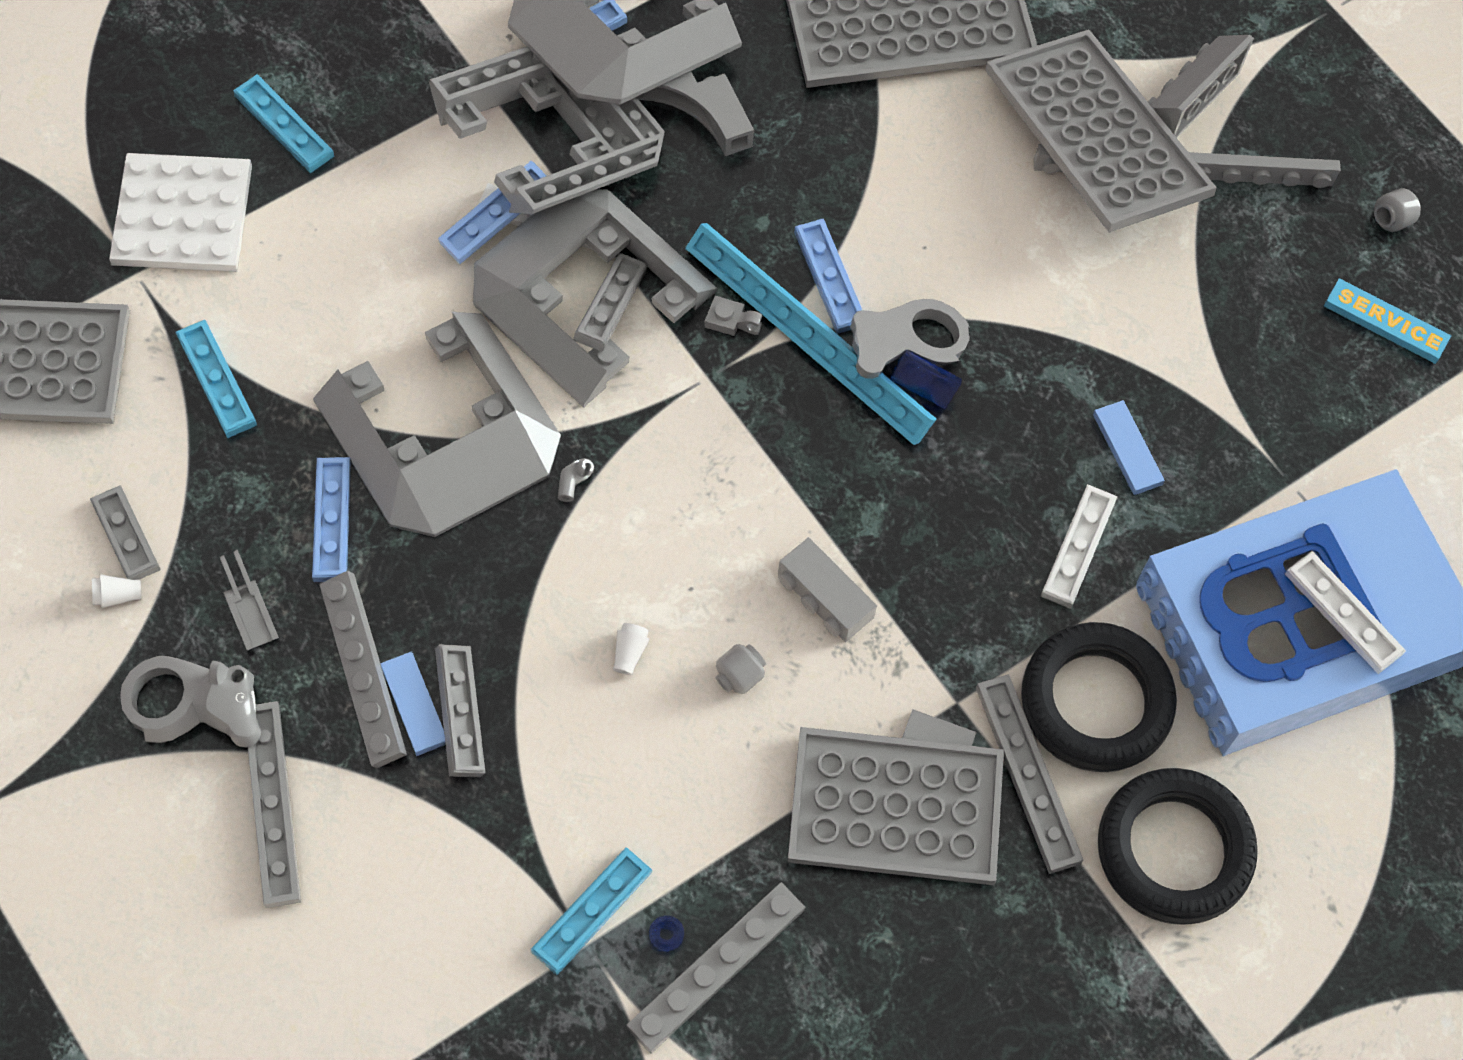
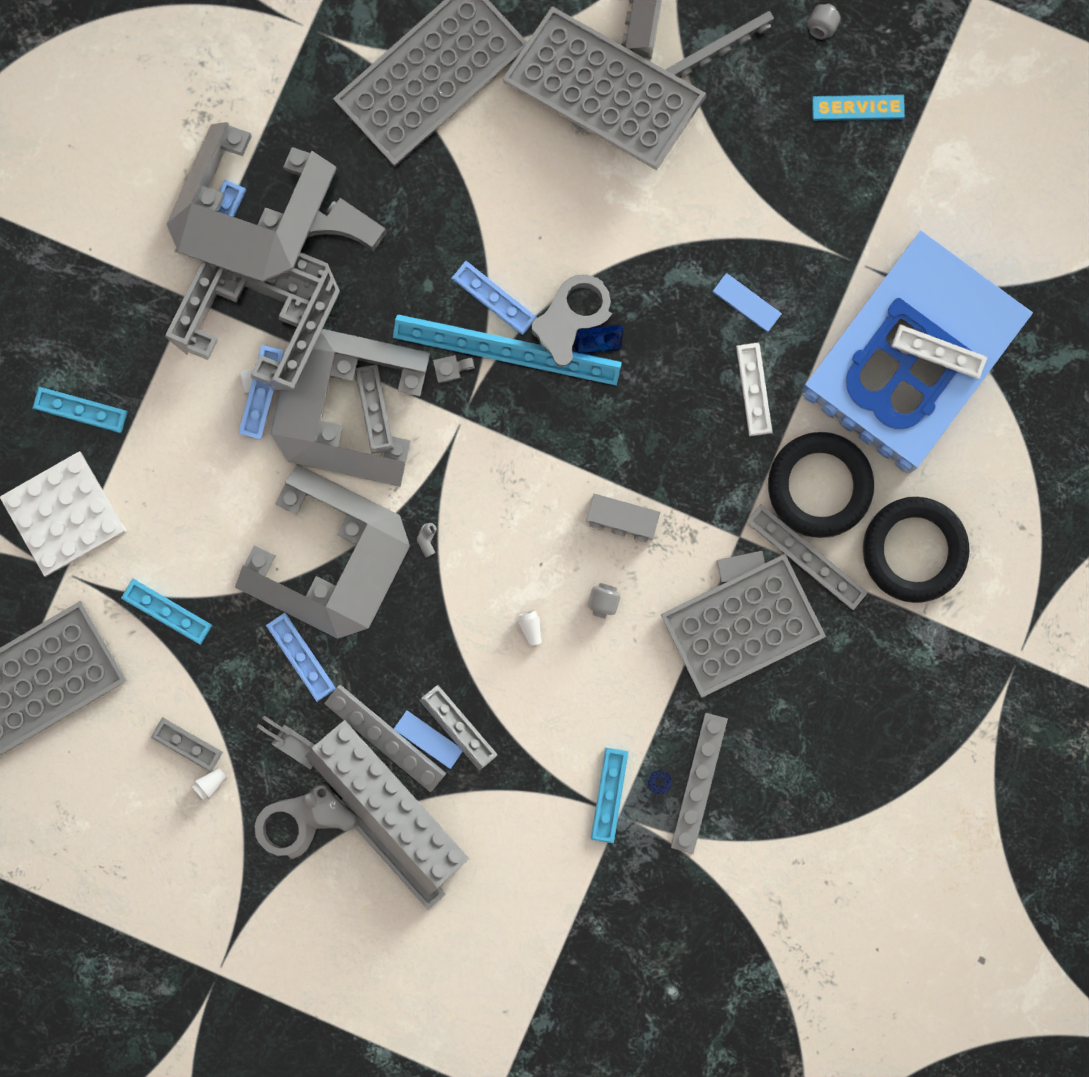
camera: 25 degrees left, 20 degrees up
(304, 746) = (386, 807): none -> light grey brick

